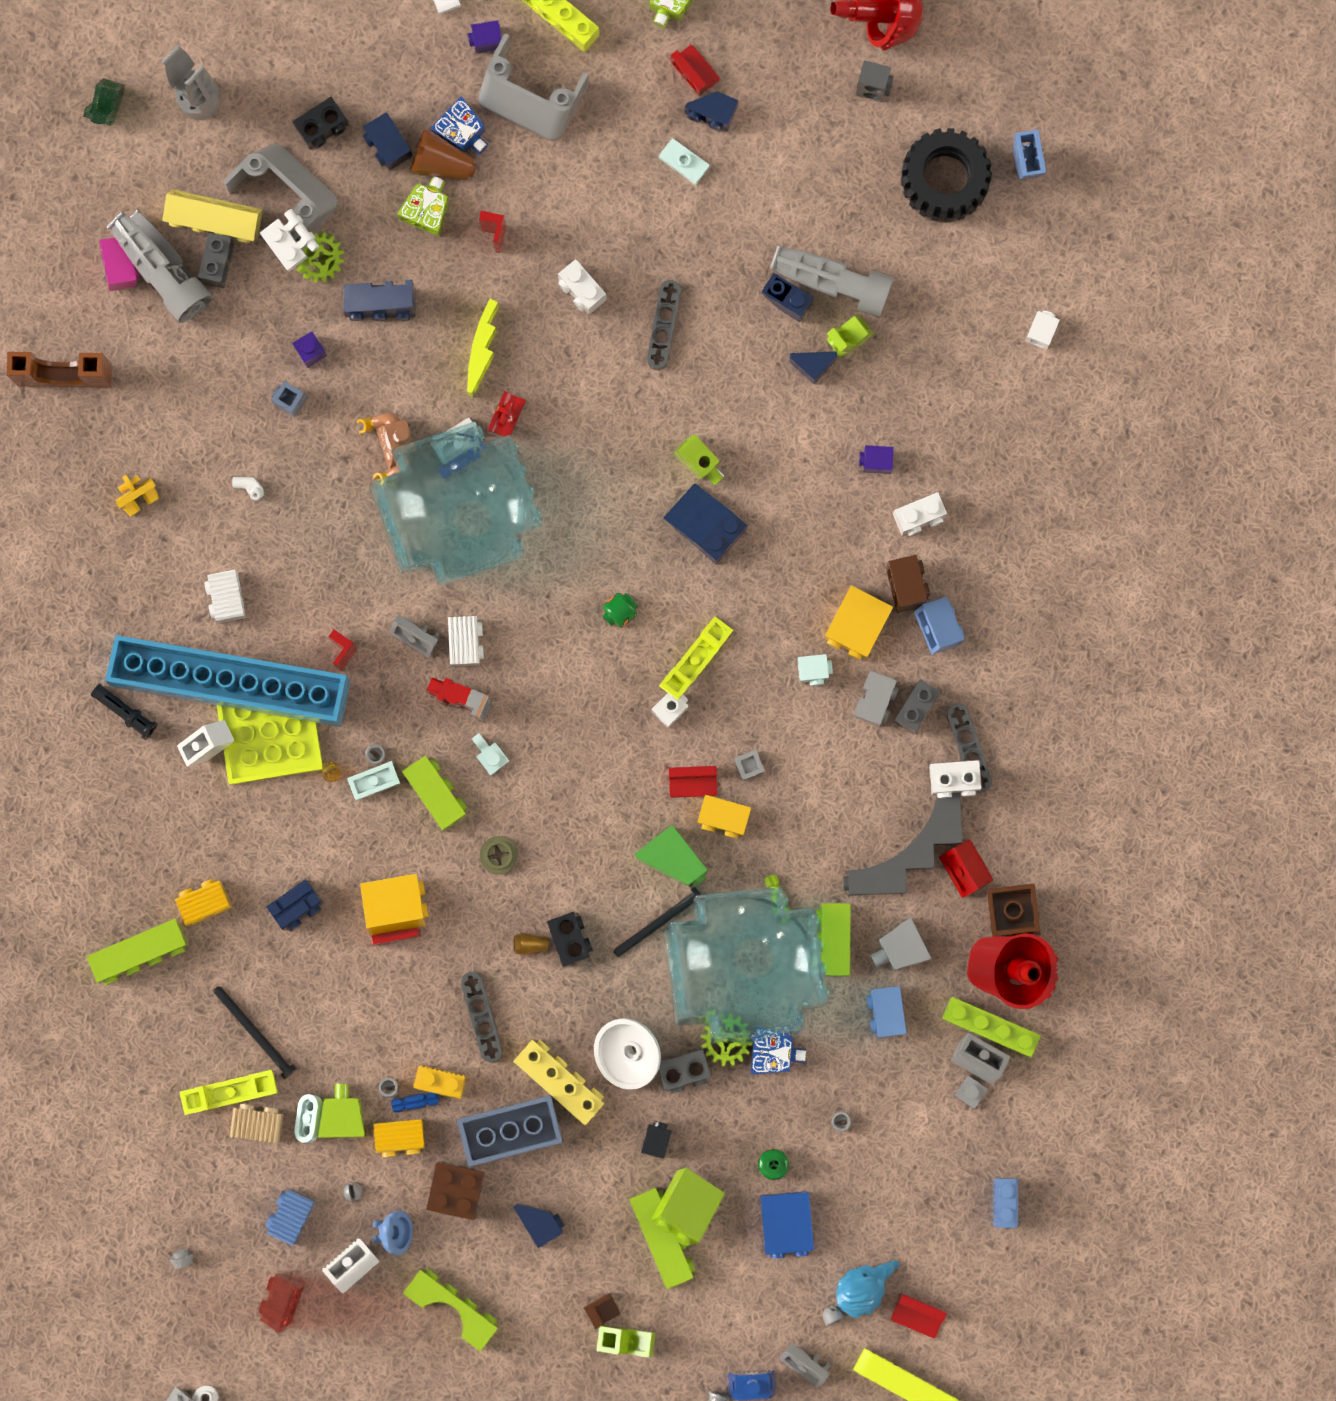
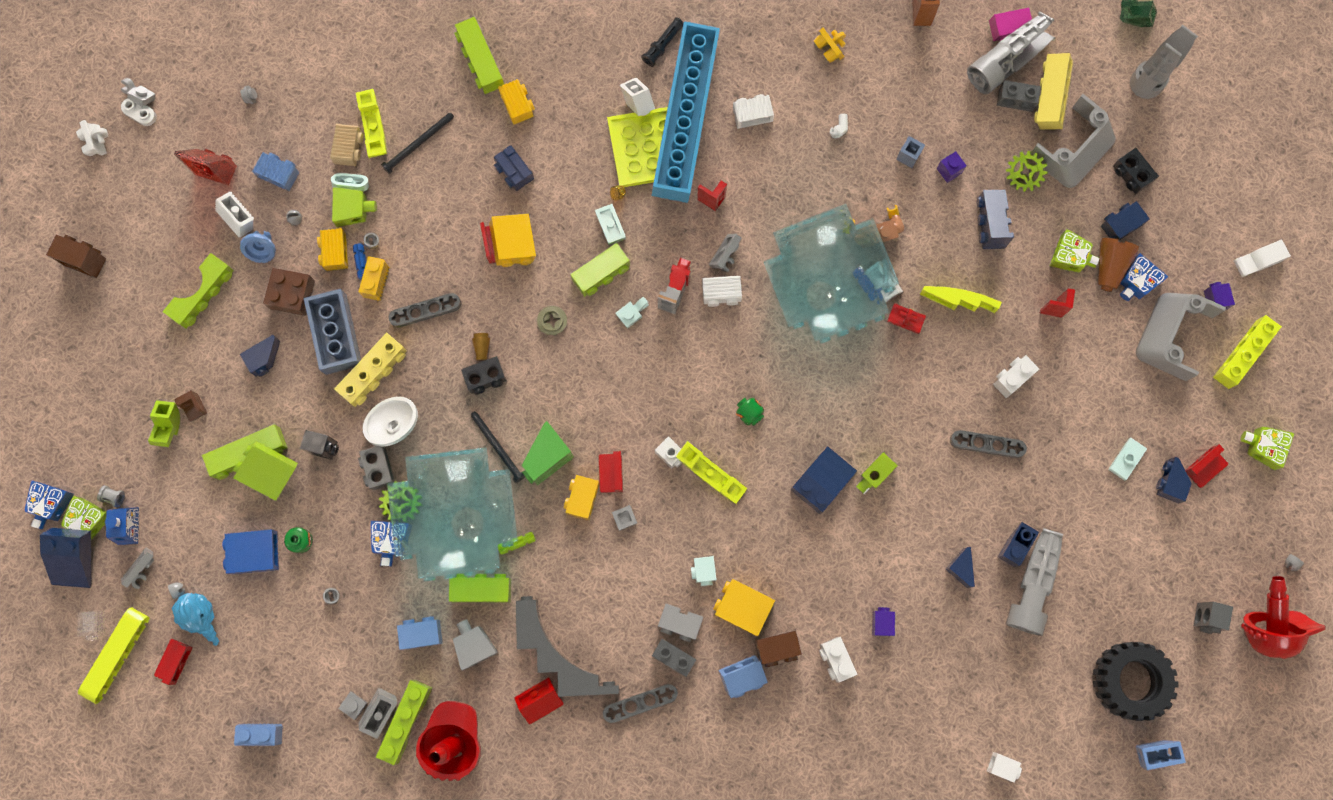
camera: 90 degrees right, 5 degrees down
(284, 245) = (1036, 139): white plate -> none
(370, 757) = (629, 221): light grey hinge -> none
(849, 336) = (988, 598): lime brick -> none
(955, 778) = (611, 690): white brick -> none
(1013, 910) = (499, 741): reddish brown brick -> none

